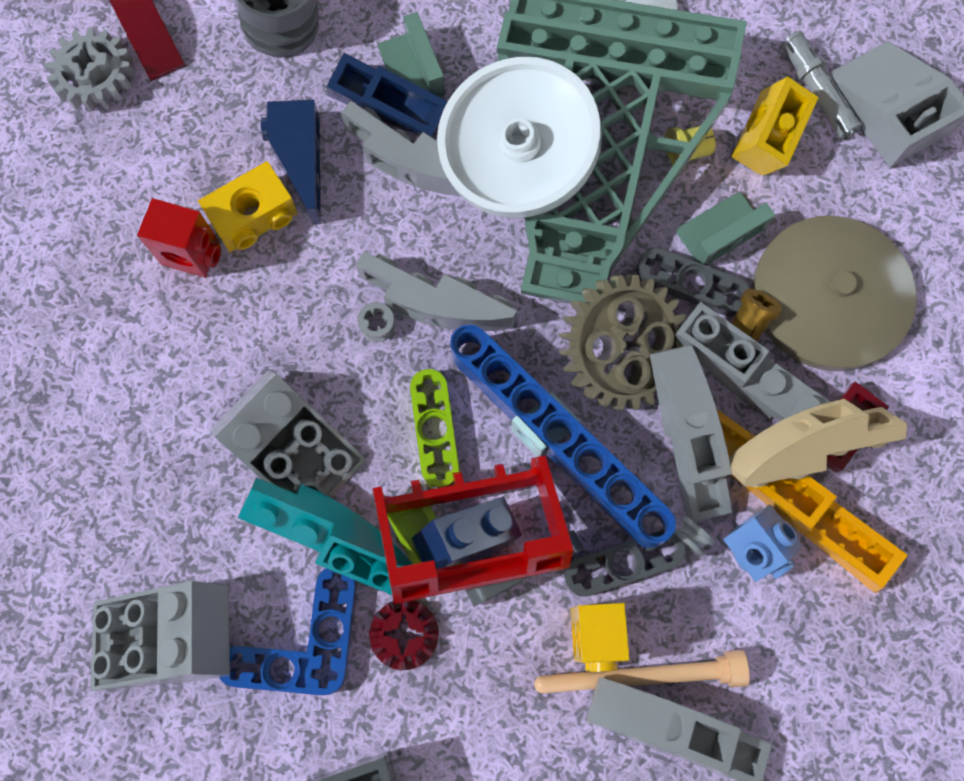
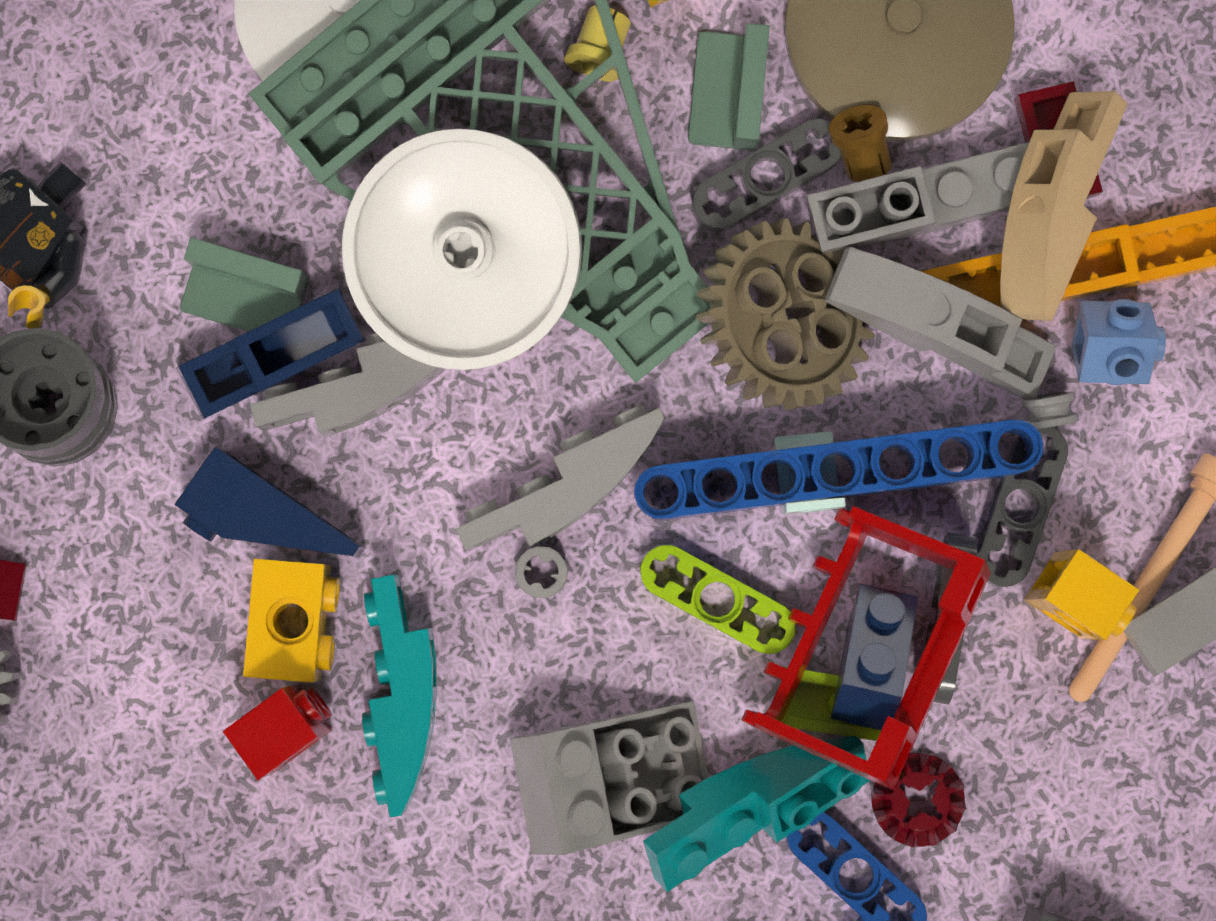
camera: 50 degrees left, 10 degrees up
(239, 306) = (403, 721): none -> teal slope

